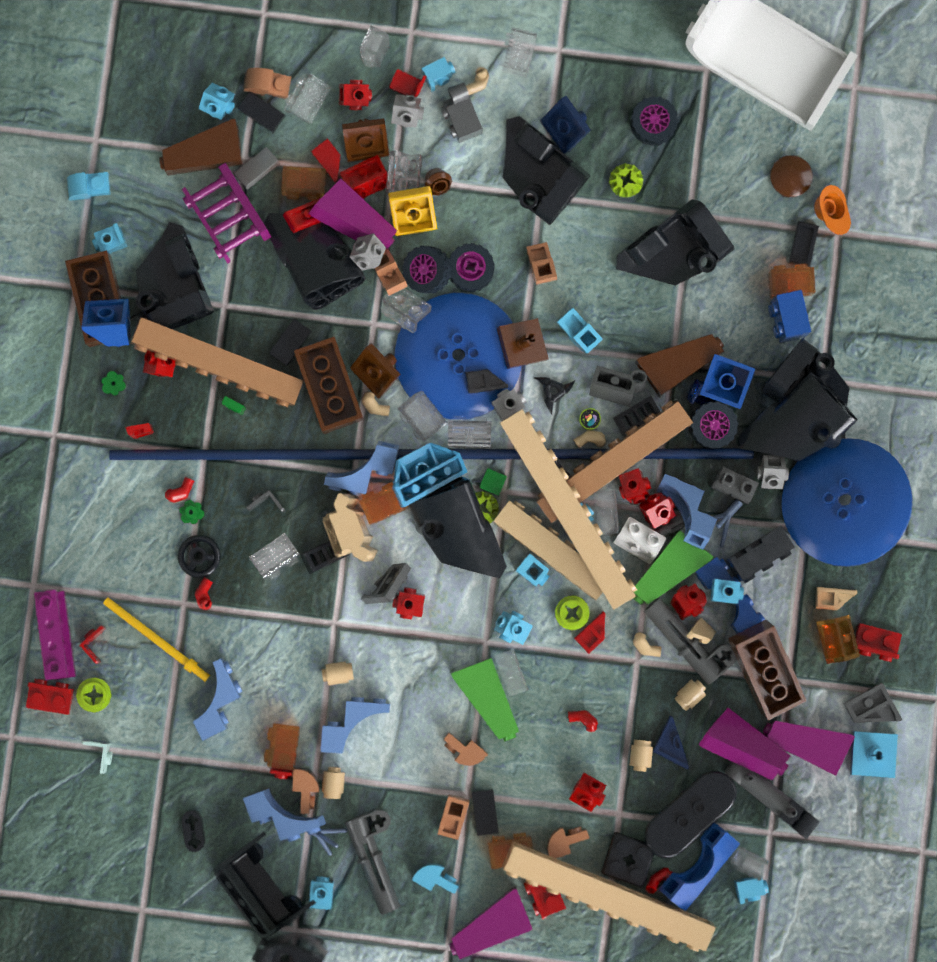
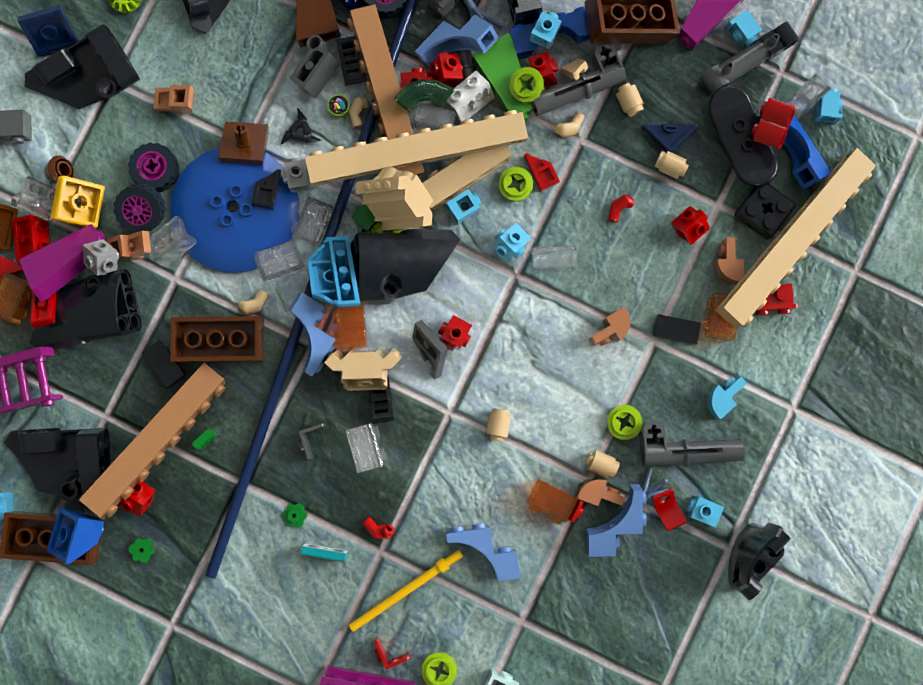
camera: 65 degrees left, 0 degrees up
(140, 430) = (196, 539): red tile -> none
(166, 552) = (324, 552): none -> teal tile
(180, 493) = (272, 519): red arm -> none
(188, 832) = (604, 610): black beam -> none
(195, 548) = (322, 523): black piece -> none
(256, 892) = (684, 573): black windscreen -> none
(311, 860) = (669, 510): none -> red bracket
(335, 735) = (540, 418): medium blue arch -> none
(376, 370) = (219, 289): reddish brown tile -> none
(386, 799) = (634, 419): none -> lime gear
(453, 816) = (672, 359): nougat brick -> none
(487, 695) = (566, 289): bright green slope -> none
(494, 925) = (787, 357): magenta slope -> none
(512, 507) = (397, 199): none -> tan slope
(579, 331) = (254, 85): medium azure brick -> none
(626, 498) = (421, 91): none -> clear green cylinder
(656, 878) = (790, 189): red arm -> none
(662, 582) = (516, 85): none -> lime gear
(708, 838) = (773, 123): none -> red brick
(744, 745) = (696, 62): magenta slope -> none
(798, 782) = (744, 29): none -> medium azure brick

